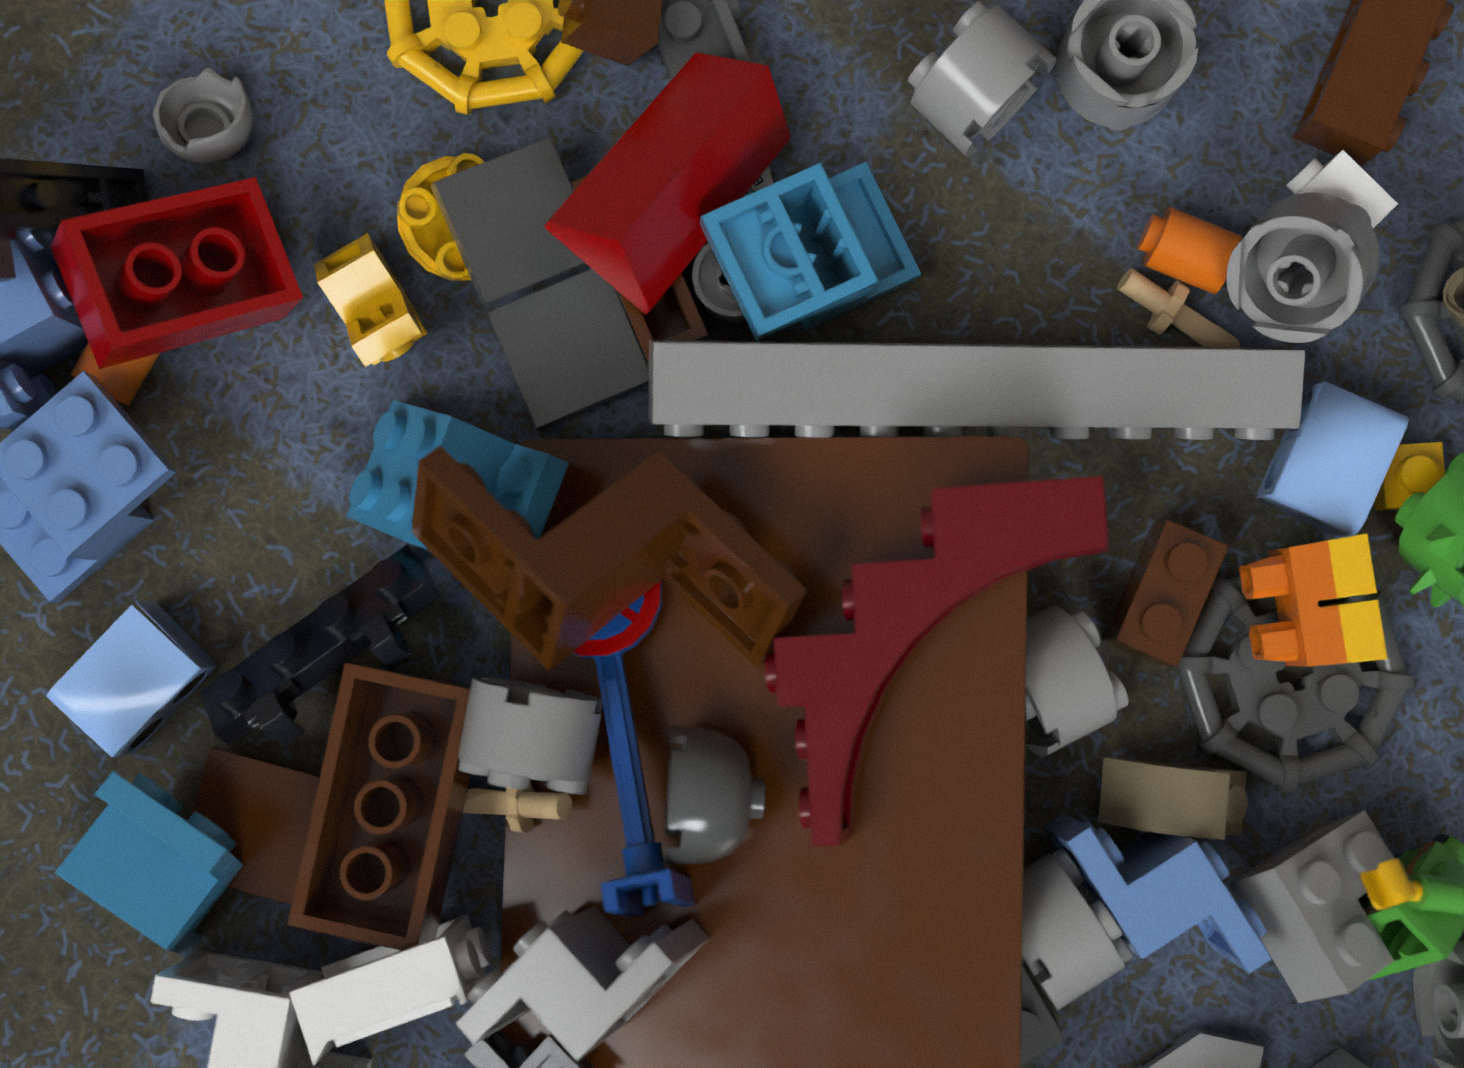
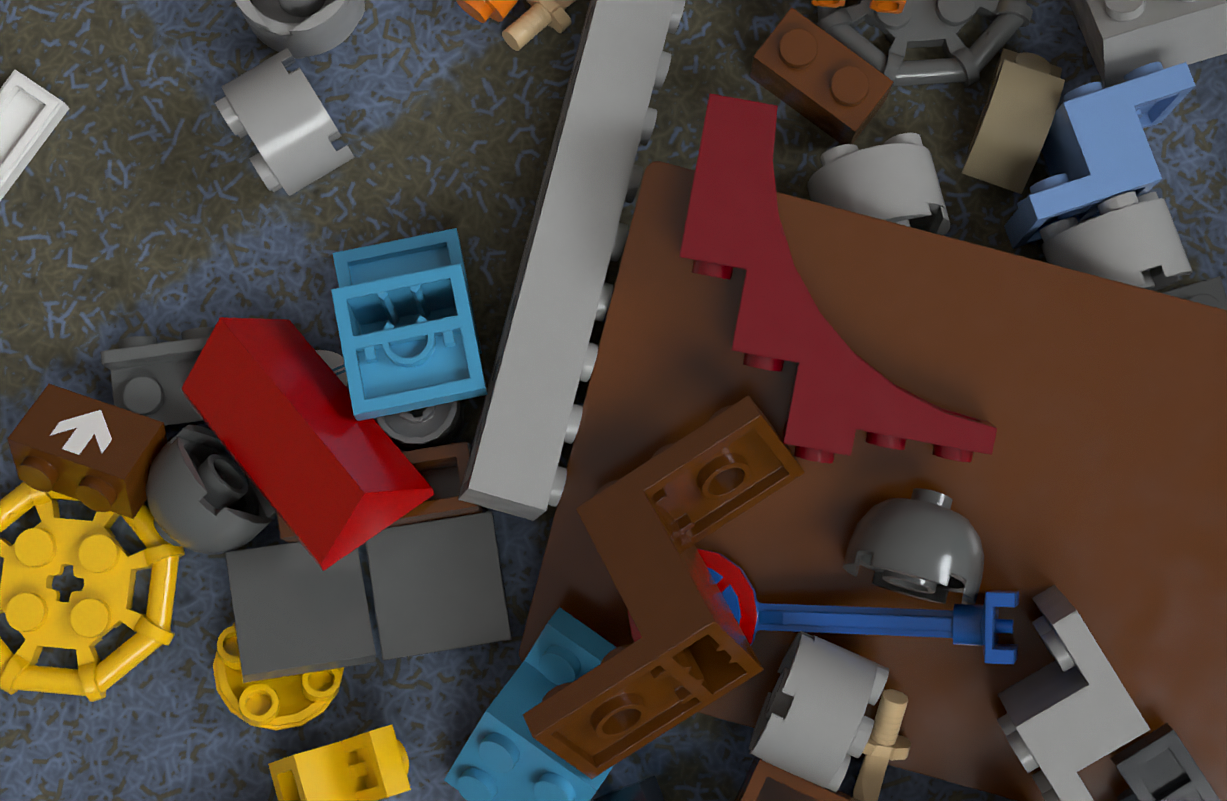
camera: 80 degrees left, 5 degrees down
(598, 98) = (203, 495): none -> dark grey cylinder

